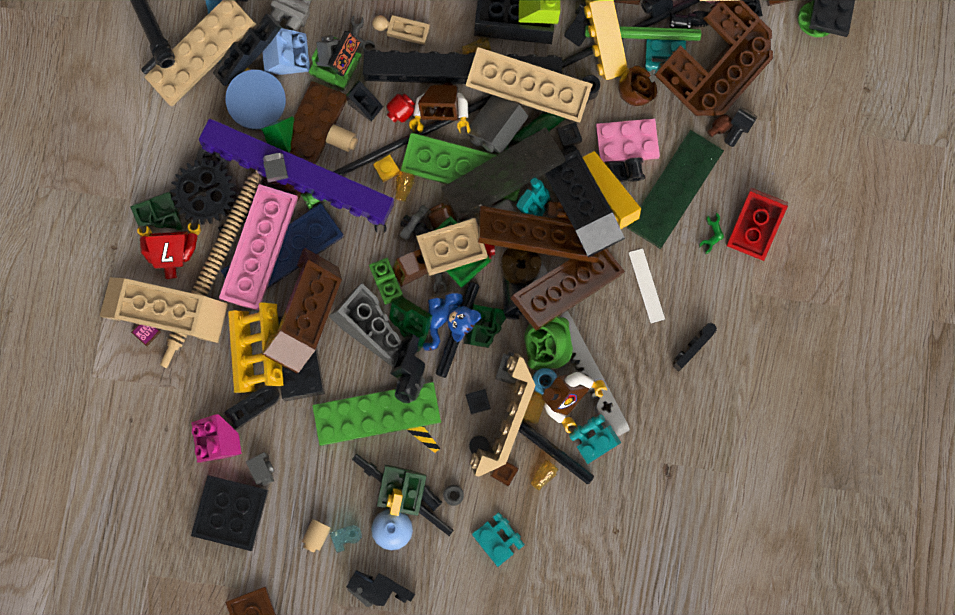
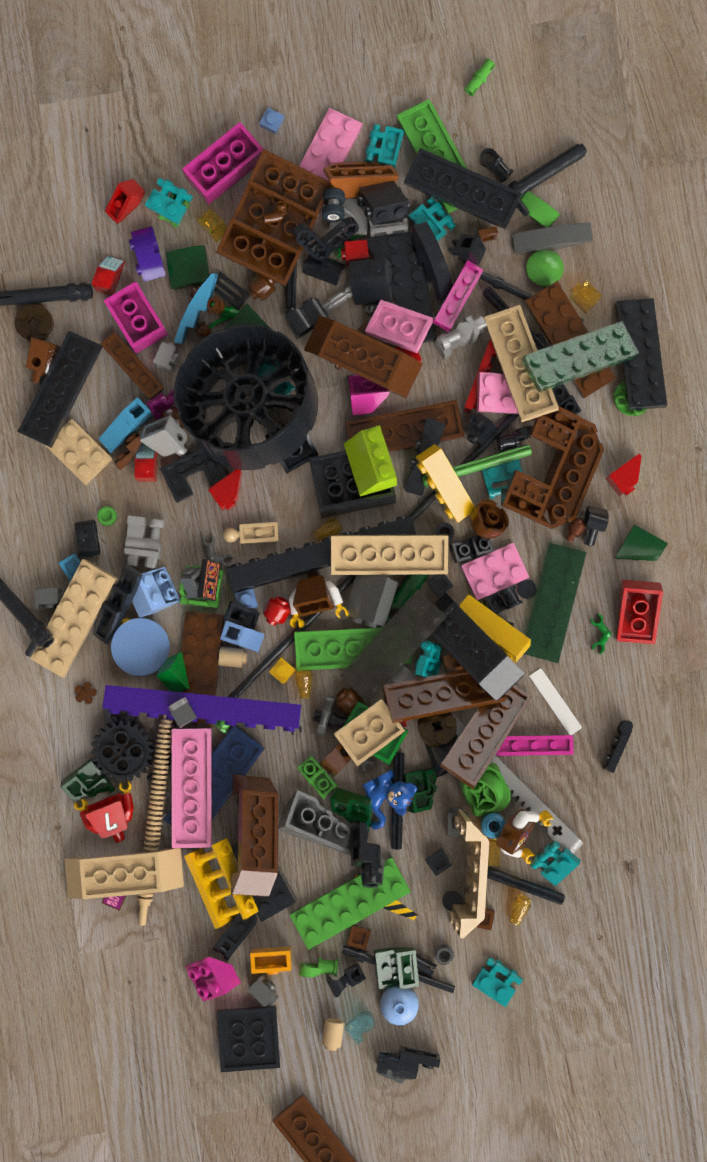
camera: 10 degrees left, 5 degrees up
(181, 24) = (47, 598): none -> dark grey brick
(186, 127) = (85, 693): none -> reddish brown plant
(279, 441) = (271, 960): none -> light orange brick
(328, 466) = (322, 967): none -> bright green connector
(353, 485) = (352, 976): none -> black leg
(357, 120) = (242, 636): none -> medium blue slope
(374, 450) = (359, 937): none -> reddish brown tile
(376, 87) = (247, 598): none -> medium blue plate
(394, 501) = (394, 982): yellow plate -> none
(610, 111) = (470, 548): none -> black slope
(612, 319) = (537, 745): none -> dark pink plate
(653, 168) = (526, 589): none -> black piece
(780, 161) = (641, 546): none -> dark green slope
(785, 90) = (626, 476): none -> red slope

